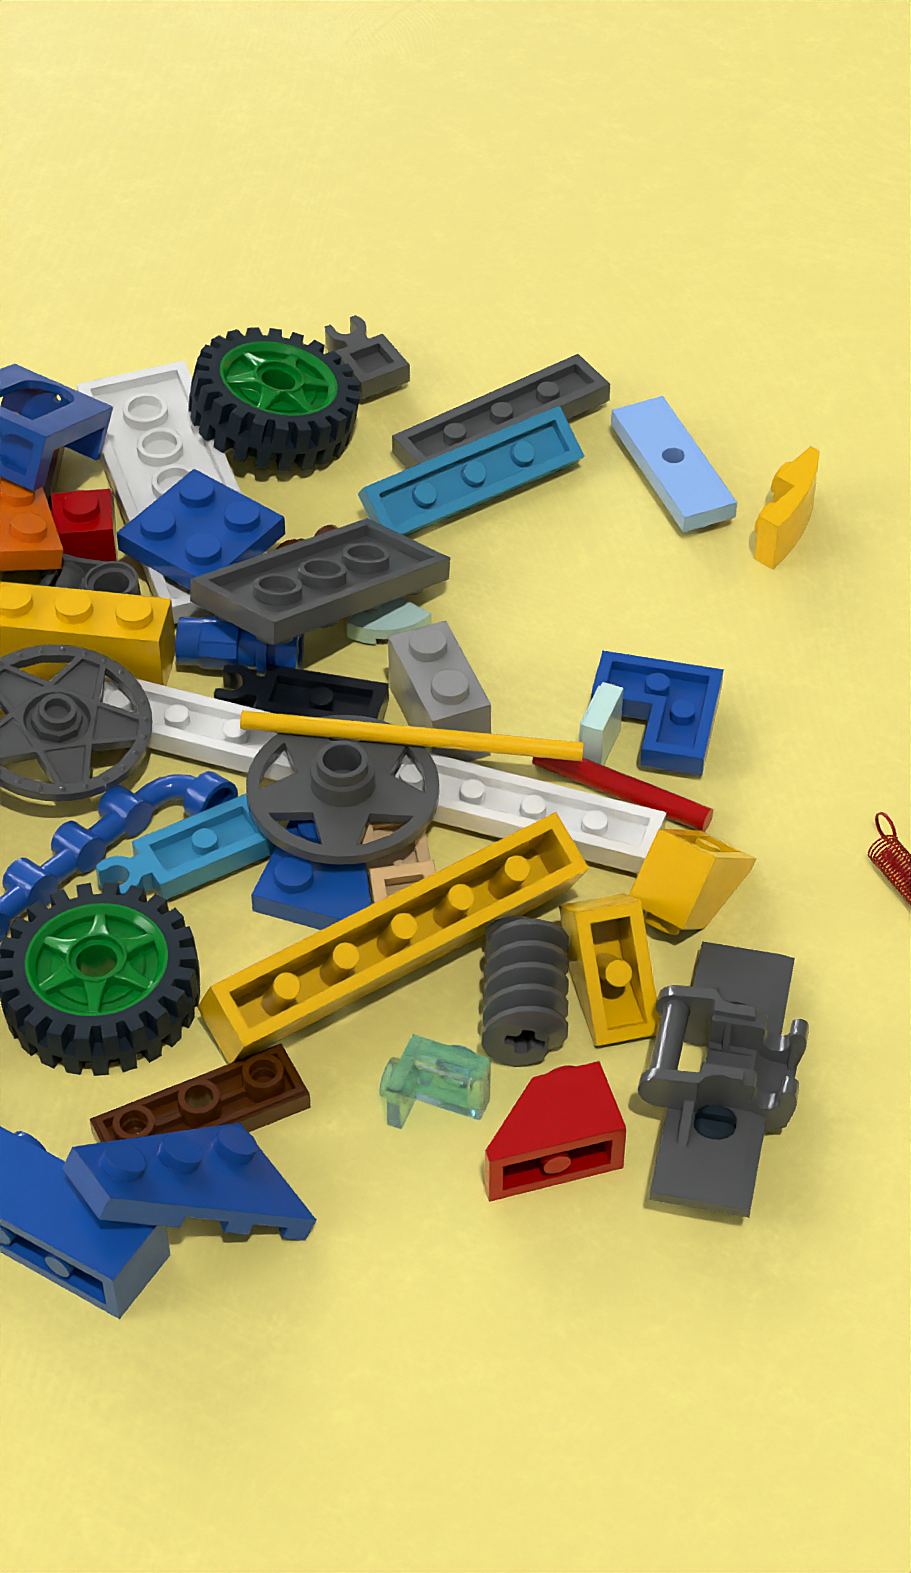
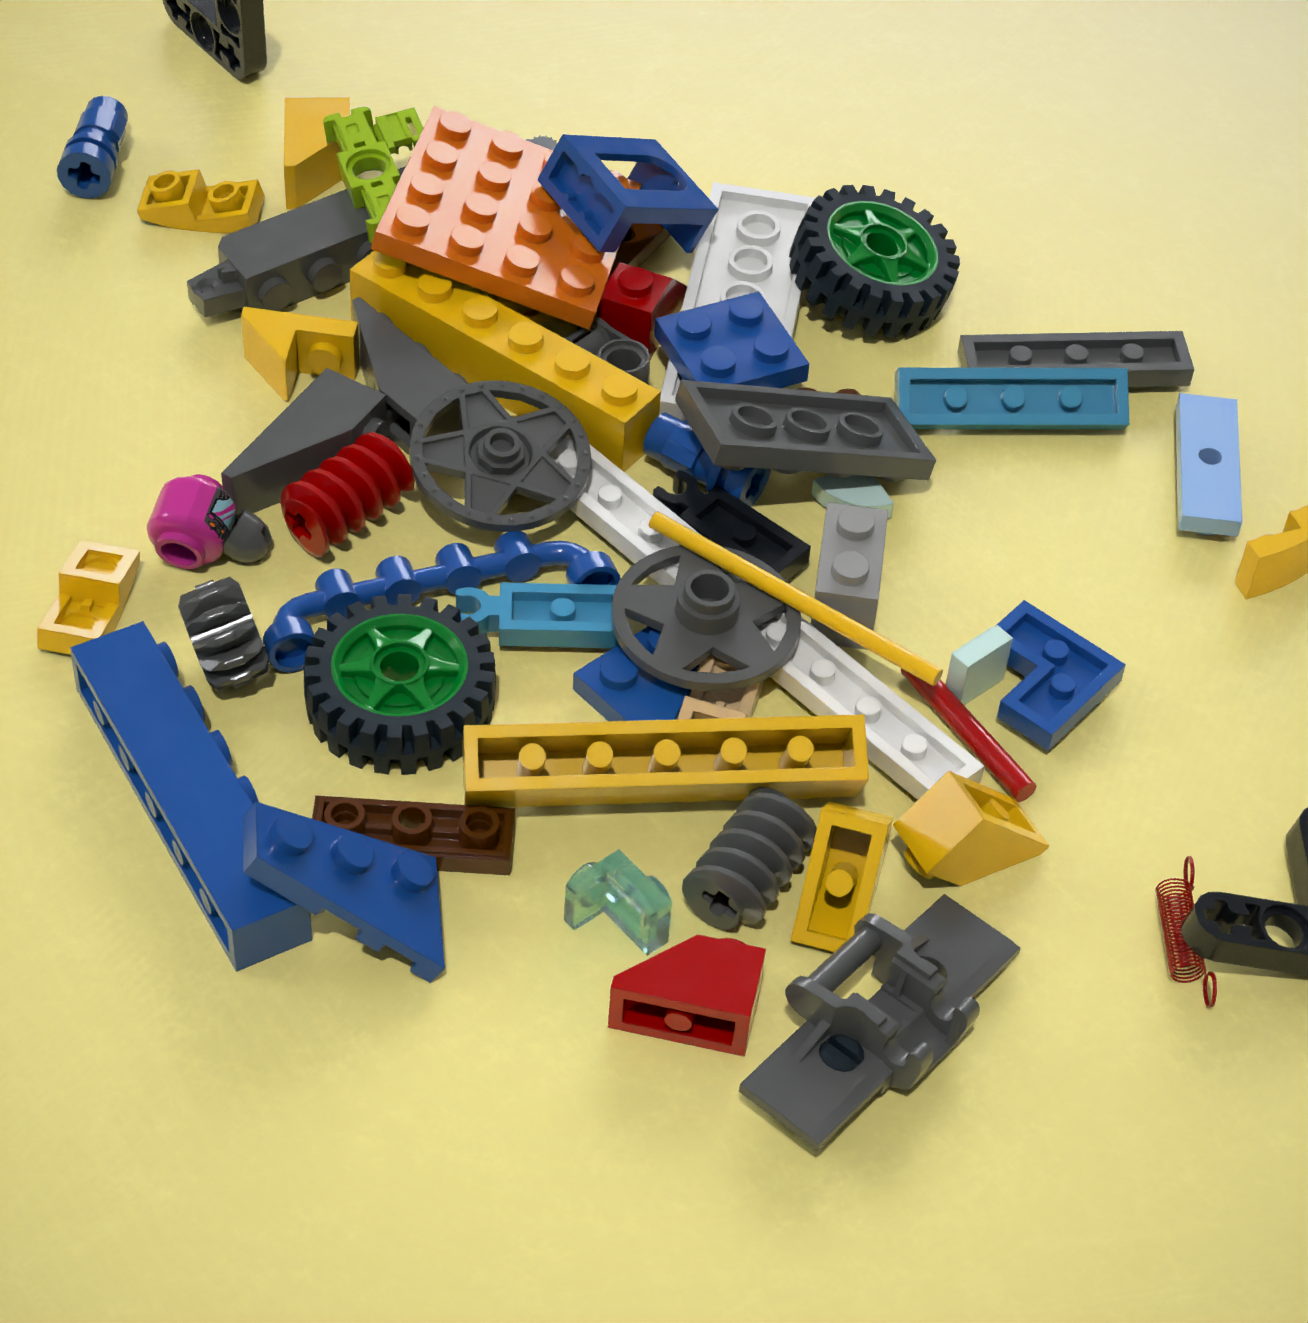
camera: 25 degrees right, 0 degrees up
(372, 359) = (986, 263): dark grey plate -> none

